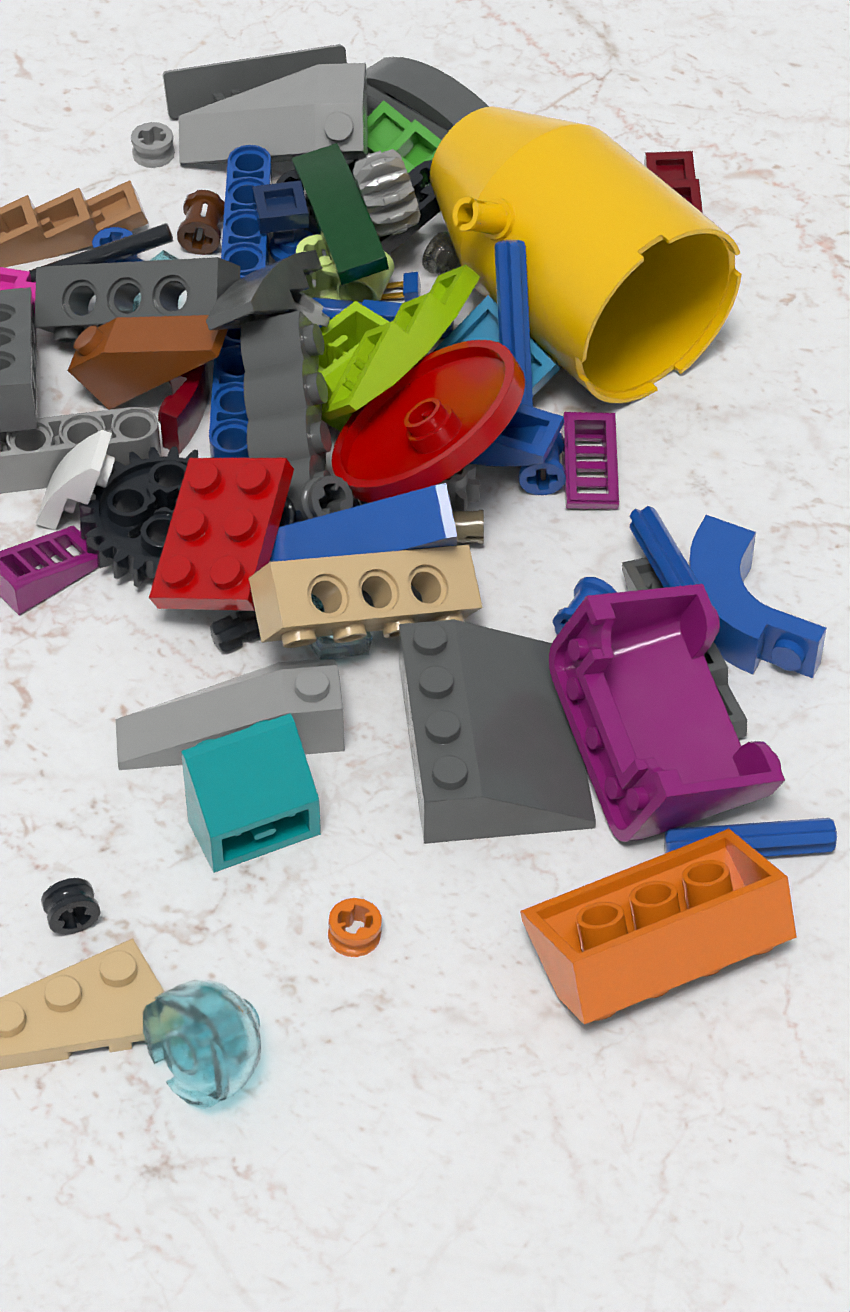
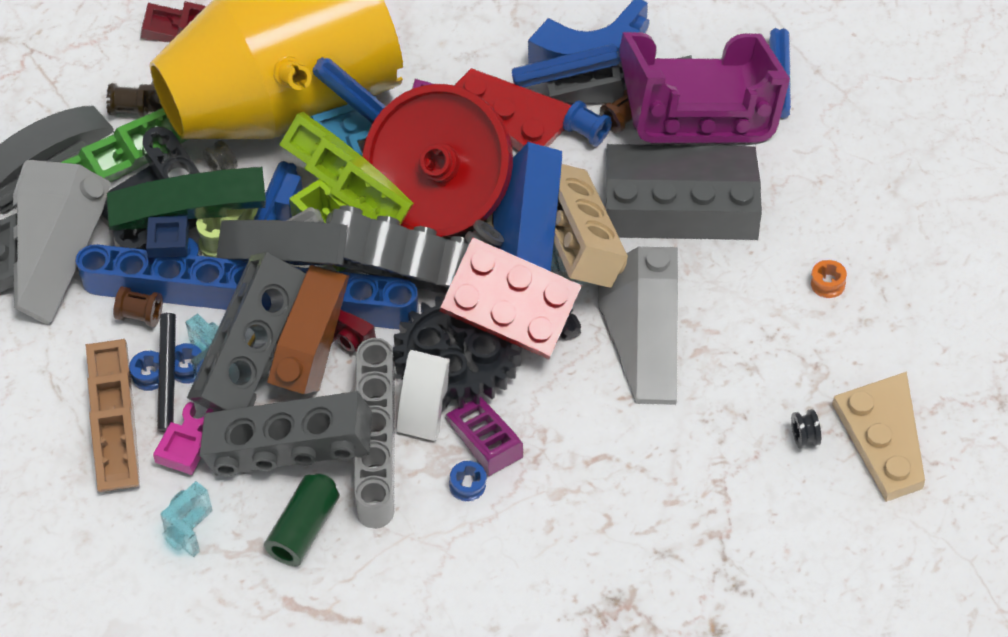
camera: 80 degrees left, 5 degrees up
(152, 144) = (28, 347): light grey bush -> none
(205, 1038) = (932, 352): clear light blue cylinder -> none
(250, 792) = (733, 314): teal slope -> none
(387, 192) = (189, 155): light grey gear -> none
(587, 525) = (524, 112): none -> red wing
(660, 924) = (850, 117): orange slope -> none

